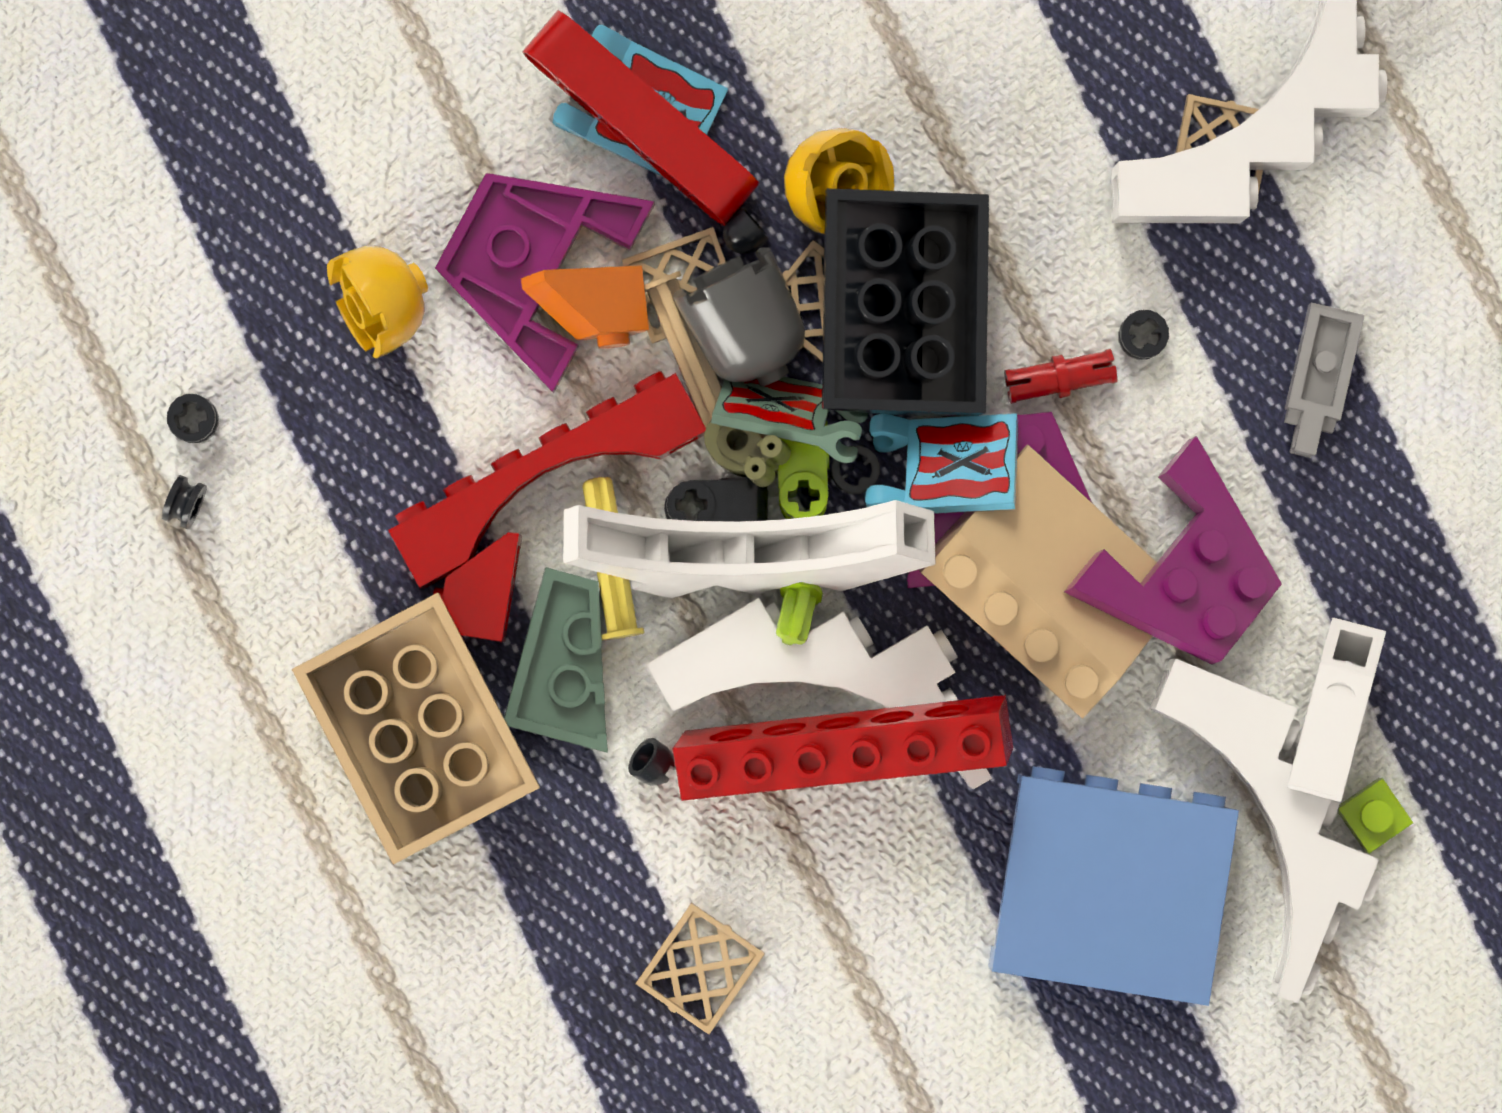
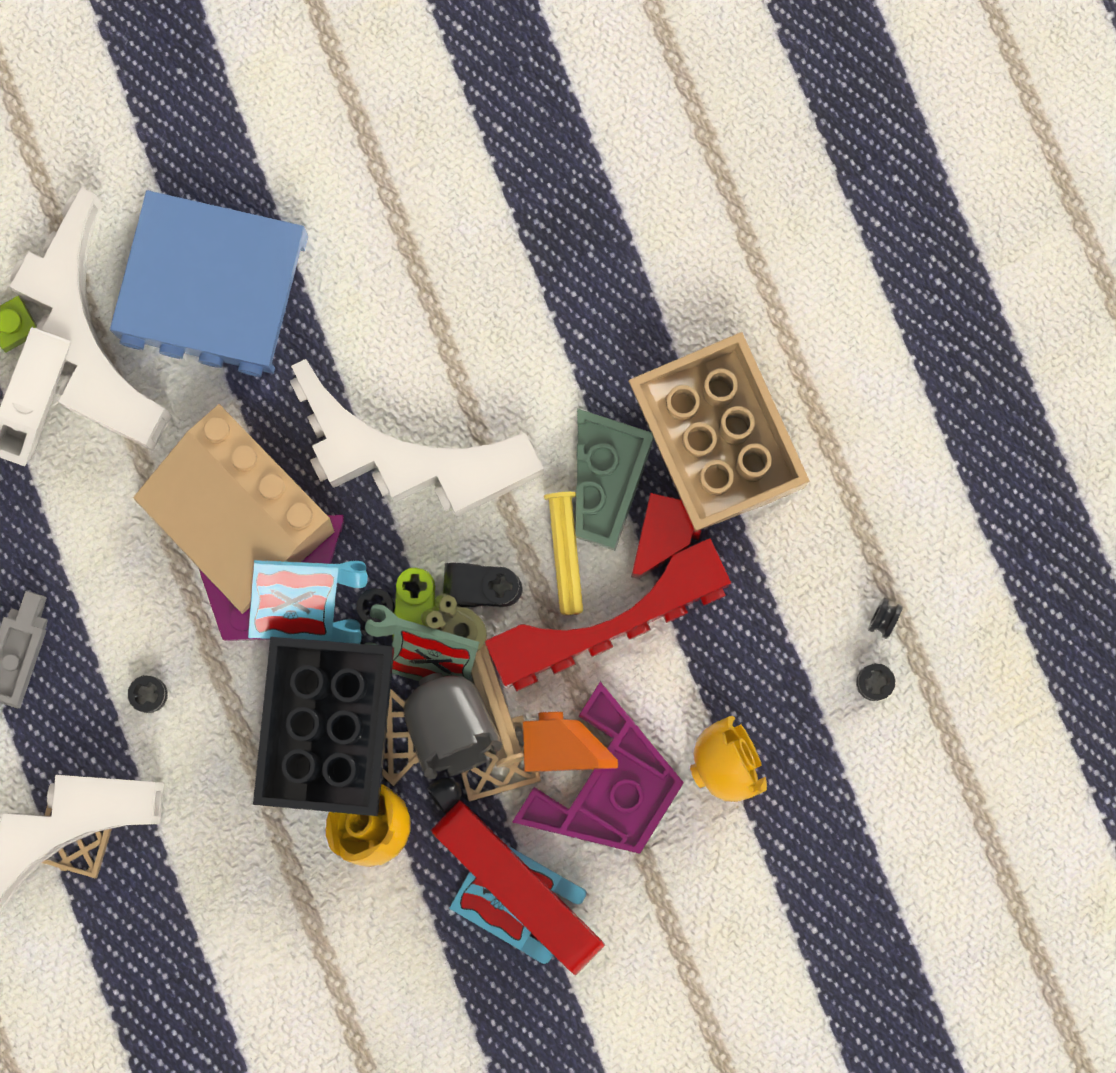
camera: 175 degrees left, 5 degrees down
(651, 762) = (545, 399): black hinge -> none
(675, 1004) = (540, 224): tan window -> none
(751, 556) = (455, 543): white arch -> none
(797, 612) = (422, 514): lime axle -> none
(844, 748) = (399, 393): red brick -> none
(1060, 376) = (213, 666): red pin -> none
(1205, 582) = (116, 504): magenta wing -> none

